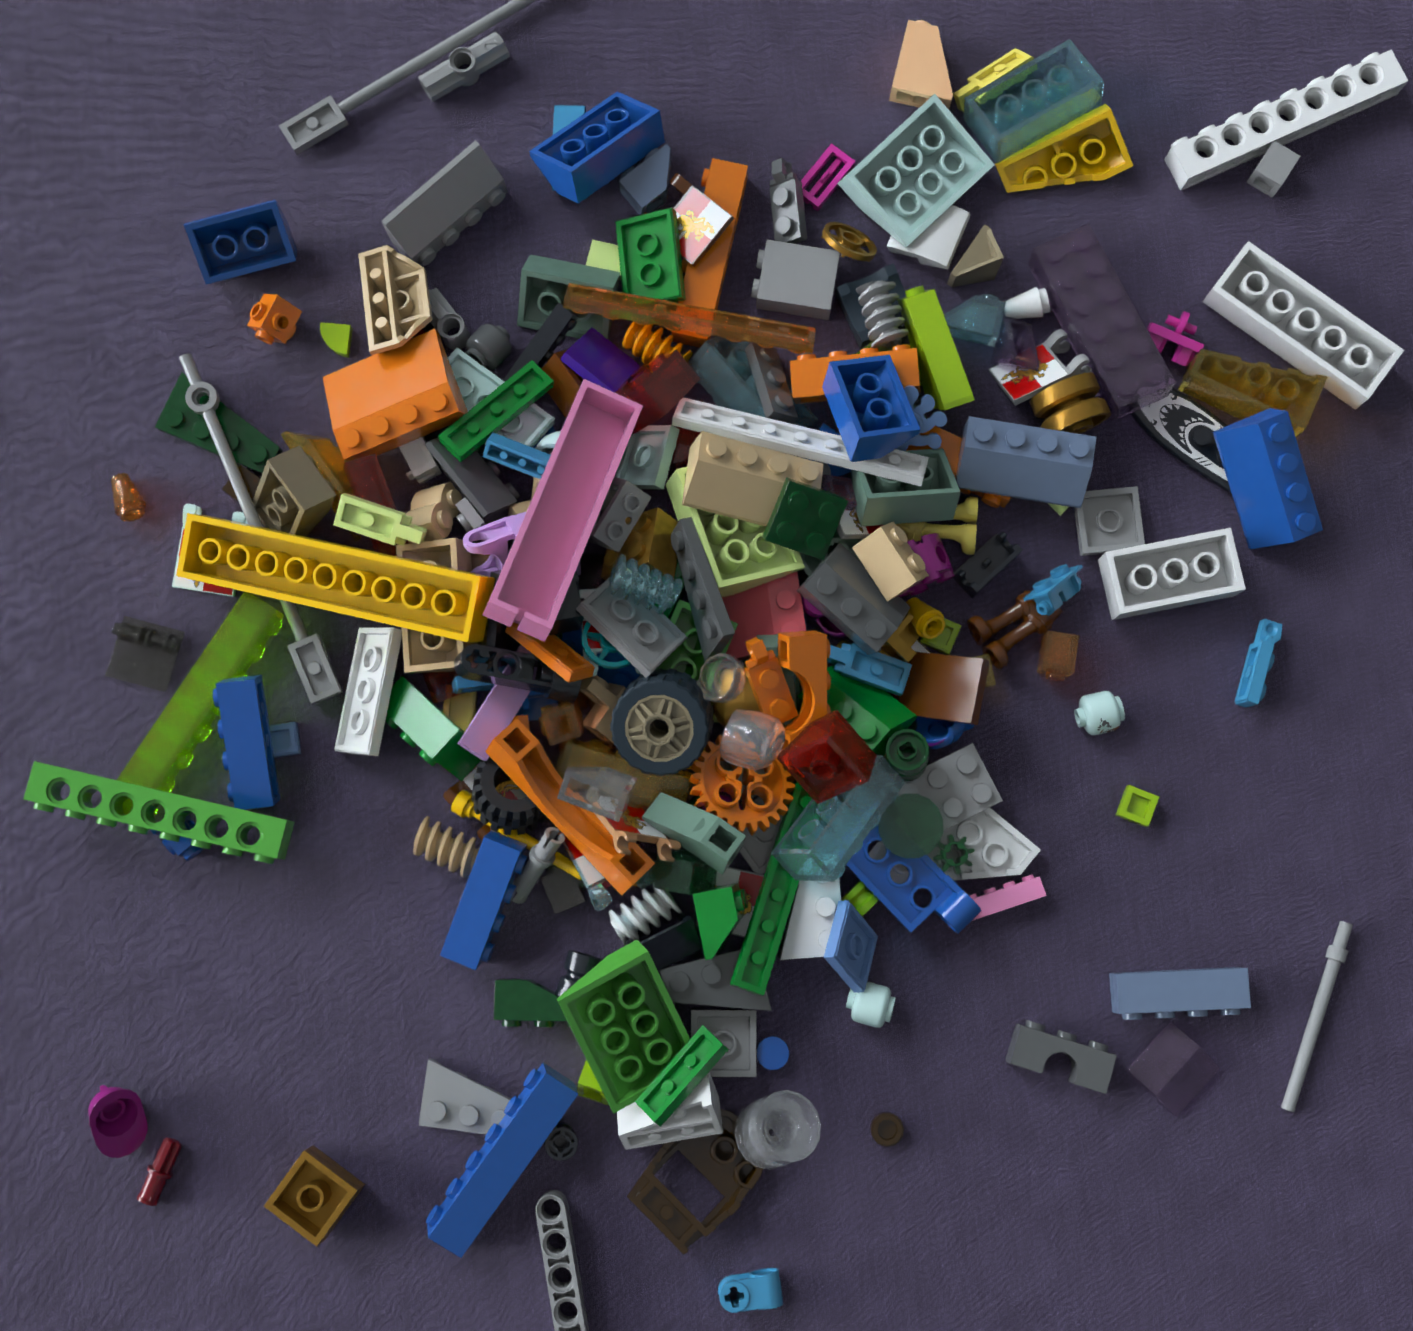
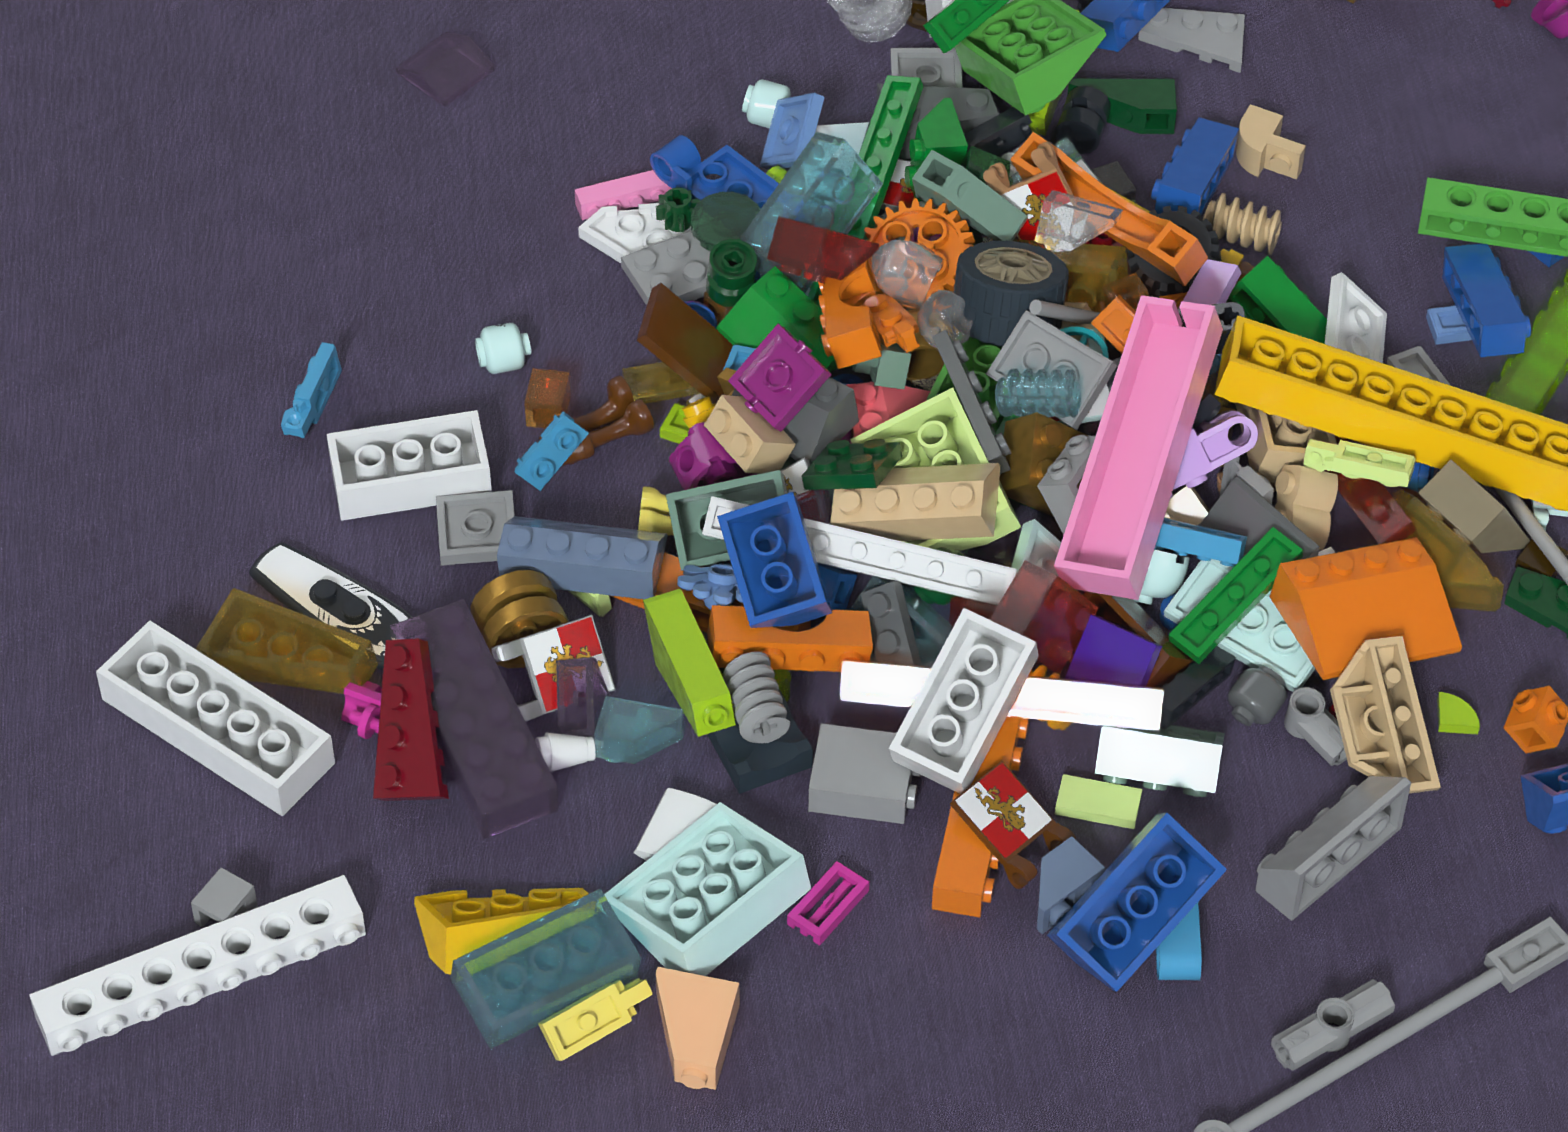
camera: 175 degrees right, 30 degrees down
(423, 956) = (1262, 147): none -> tan brick
(540, 858) = (1137, 193): light grey pin -> none
(614, 693) = (1062, 312): none -> light grey bar
(651, 256) = (1056, 780): green tile -> none
(720, 283) = (964, 701): none -> white brick
(772, 1052) = (871, 72): blue tile -> none
(787, 204) = (877, 859): dark grey hinge -> none
(849, 241) = (796, 808): pearl gold wheel -> none
(867, 593) = (779, 377): none -> magenta plate
(886, 1129) = (751, 20): dark brown tile -> none
(979, 261) = (629, 788): dark tan slope -> none
(986, 564) = (618, 485): black hinge -> none
(1089, 1064) = (589, 77): dark grey arch -> none
(1137, 806) = (466, 269): lime plate -> none
(1153, 300) = (407, 740): none -> dark red wing
(1180, 991) = (434, 119): sand blue brick -> none
(1268, 479) = (282, 545): blue slope -> none
(1336, 955) = (260, 150): light grey bar -> none

